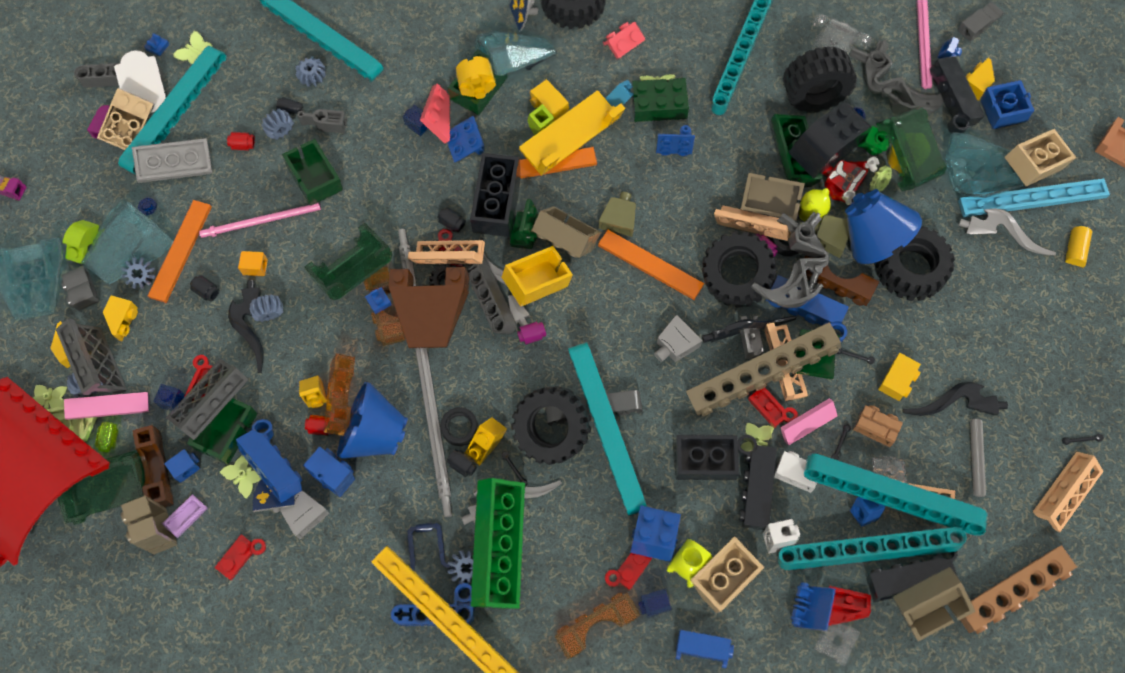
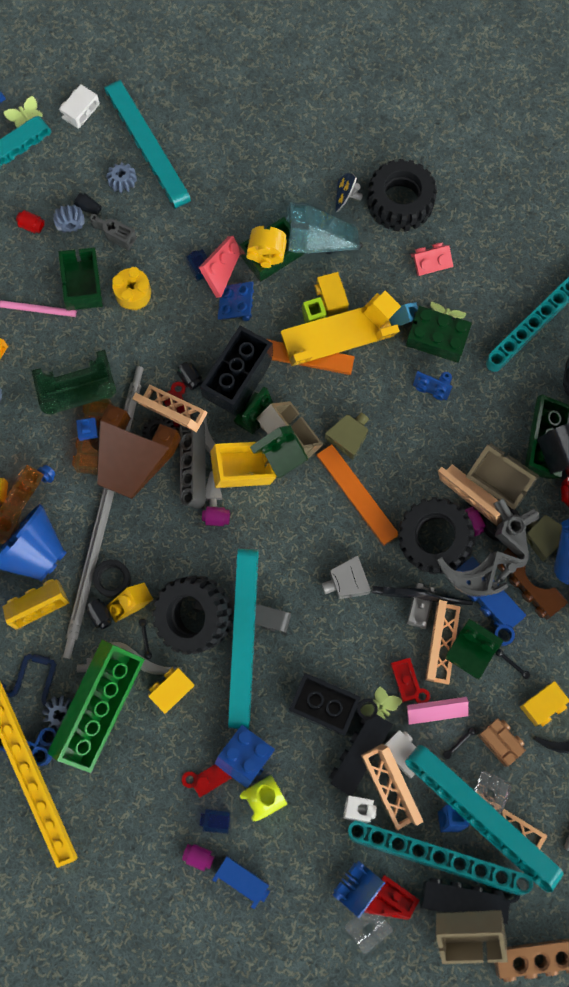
camera: 20 degrees right, 5 degrees up
(243, 24) = (79, 106): none -> white brick
(359, 356) = (48, 473): none -> blue plate
(364, 163) = (131, 288): none -> yellow brick
(398, 477) = (35, 604): none -> yellow slope
(560, 502) = (171, 689): none -> yellow brick
(568, 247) = (281, 450): none -> dark green bracket
(601, 94) = (381, 308): none -> yellow brick
(620, 611) = (127, 822): clear orange arch -> none
(653, 643) = (198, 857): none -> magenta brick
(726, 575) = (291, 824): tan slope -> none
(806, 499) = (400, 787): none -> light nougat fence
(814, 201) = (542, 499): neon yellow piece -> none
(823, 334) = (343, 642): dark tan brick -> none

